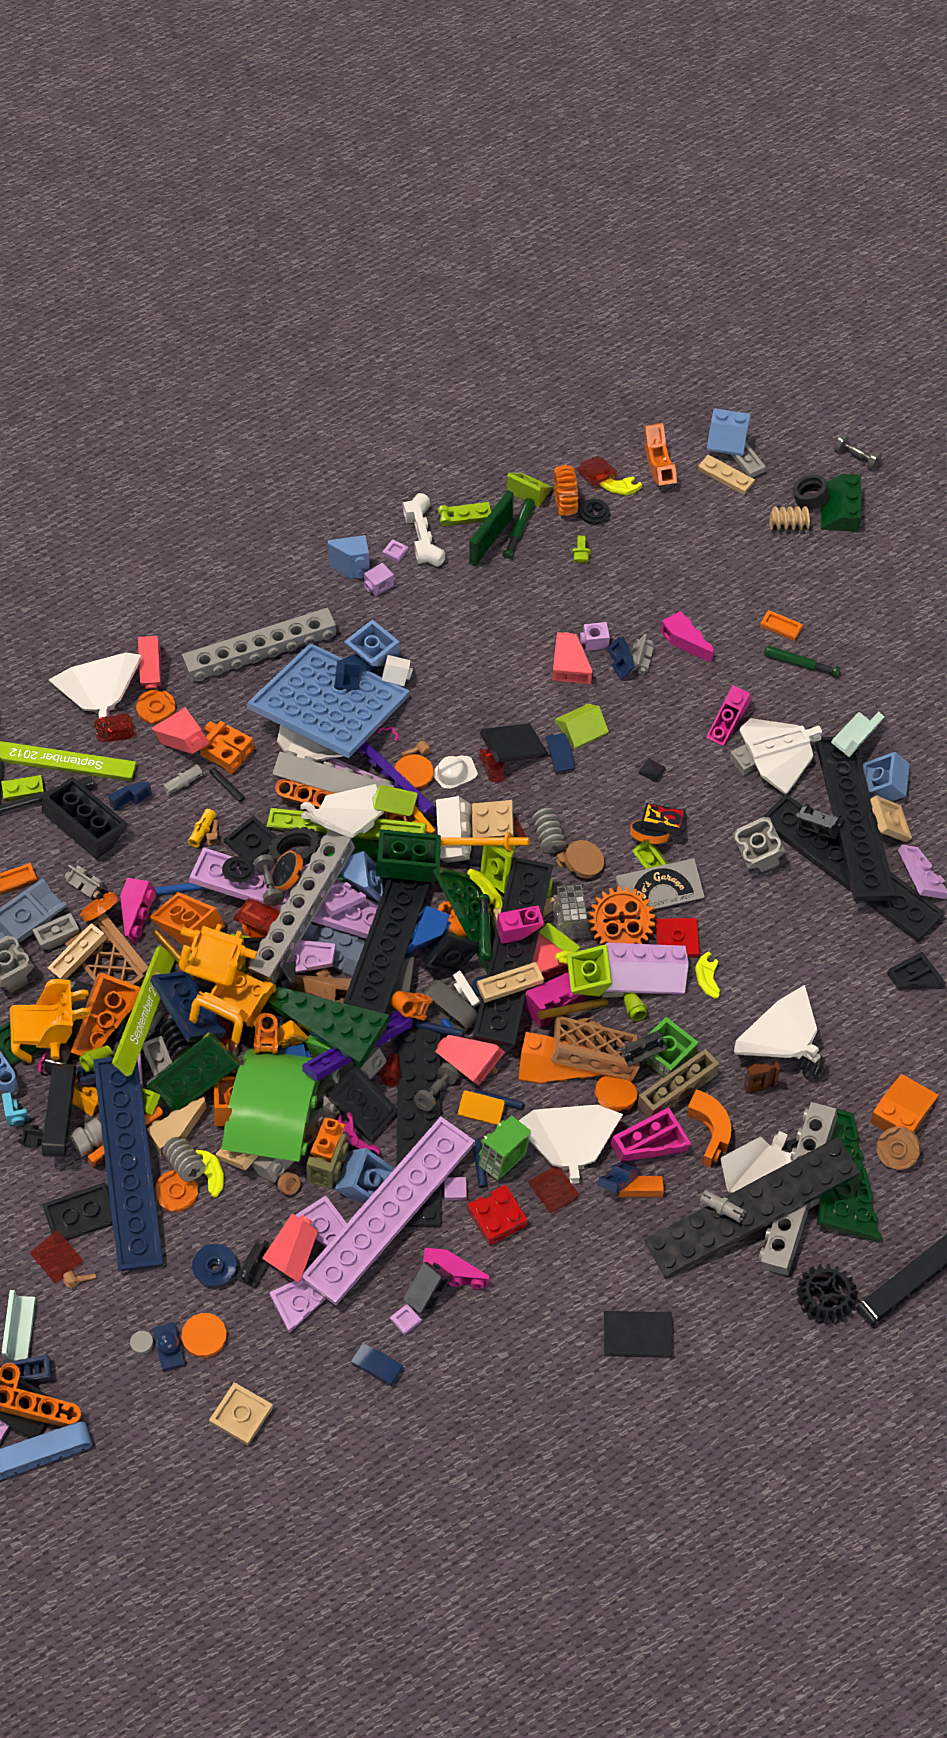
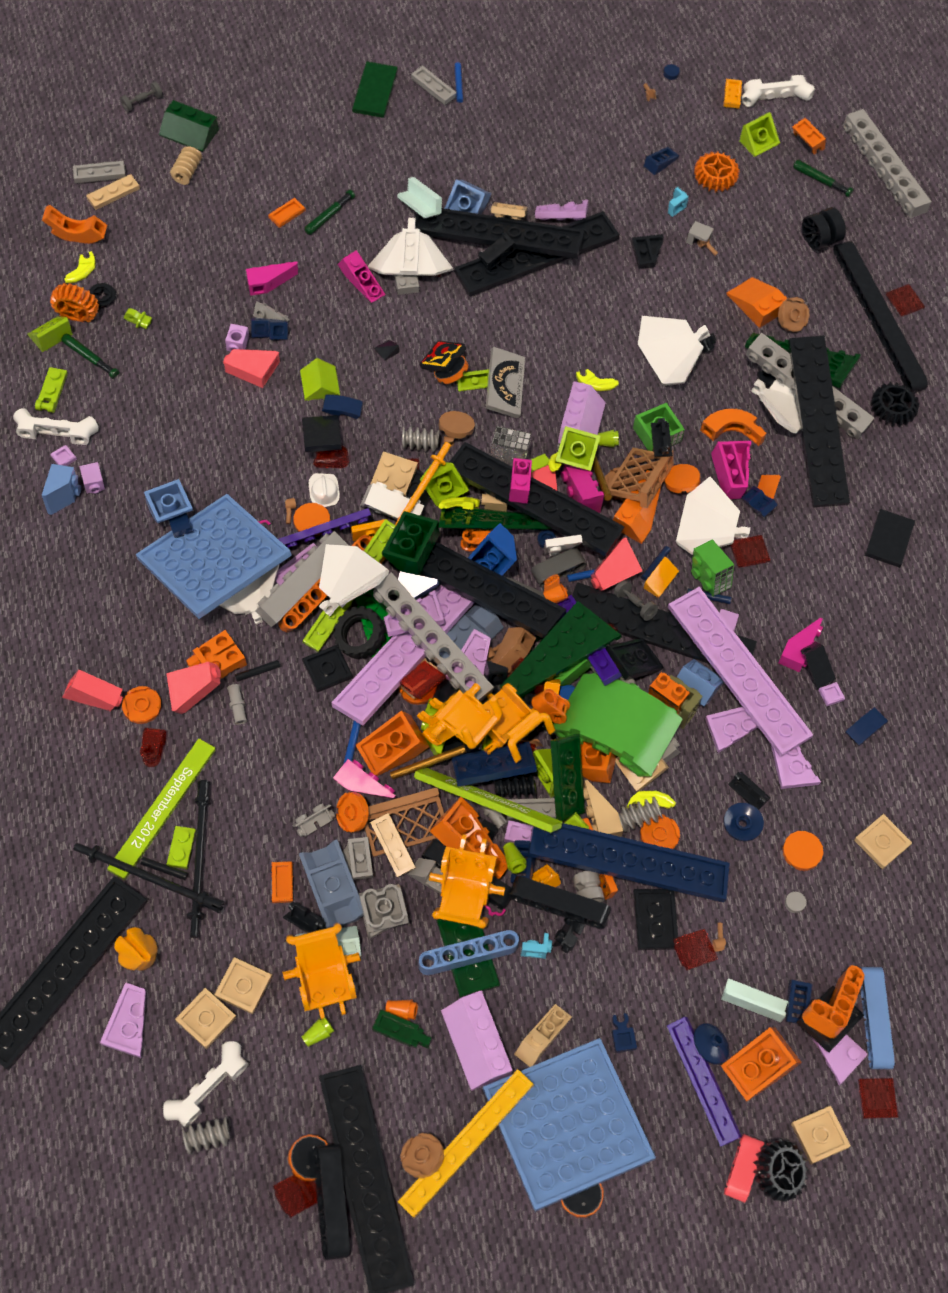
camera: 75 degrees left, 5 degrees up
(83, 817) = (246, 798): black slope -> none
(99, 683) = (93, 742): white panel -> none
(134, 792) = (236, 750): dark blue slope -> none
(168, 1346) = (805, 881): dark blue tile -> none
(201, 828) = (297, 704): yellow pin -> none
(212, 838) = (310, 697): medium nougat hand -> none
(245, 865) = (366, 674): black gear -> none
(259, 645) = (117, 536): light grey brick -> none
(272, 896) = (372, 656): dark grey wheel -> none
(286, 870) = (391, 639): tile -> none
(288, 1183) = (685, 741): medium nougat tile -> none
(292, 1247) = (754, 753): coral slope -> none
(347, 675) = (193, 533): dark blue panel -> none
(353, 1138) = (653, 674): dark pink piece -> none
(394, 800) = (352, 534): lime slope -> none
(396, 670) = (202, 495): white brick -> none
(440, 1029) = (580, 579): dark blue piece -> none
(451, 953) = (520, 544): black tile -> none
(485, 947) = (518, 514): dark green piece -> none
(491, 528) = (86, 371): dark green tile -> none
(497, 1215) = (762, 597): red piece -> none
(510, 982) = (570, 507): tan plate -> none
(596, 470) = (59, 275): clear red piece -> none
(620, 901) = (511, 411): orange gear -> none
(678, 933) = (553, 389): red plate -> none
(678, 1084) = (694, 435): dark tan brick -> none
(722, 1206) = (816, 436): light grey pin -> none
(728, 432) = (77, 168): medium blue slope -> none
(759, 844) = (498, 298): light grey piece -> none
(761, 1076) = (707, 375): reddish brown plate -> none
(808, 482) = (162, 130): black tyre -> none

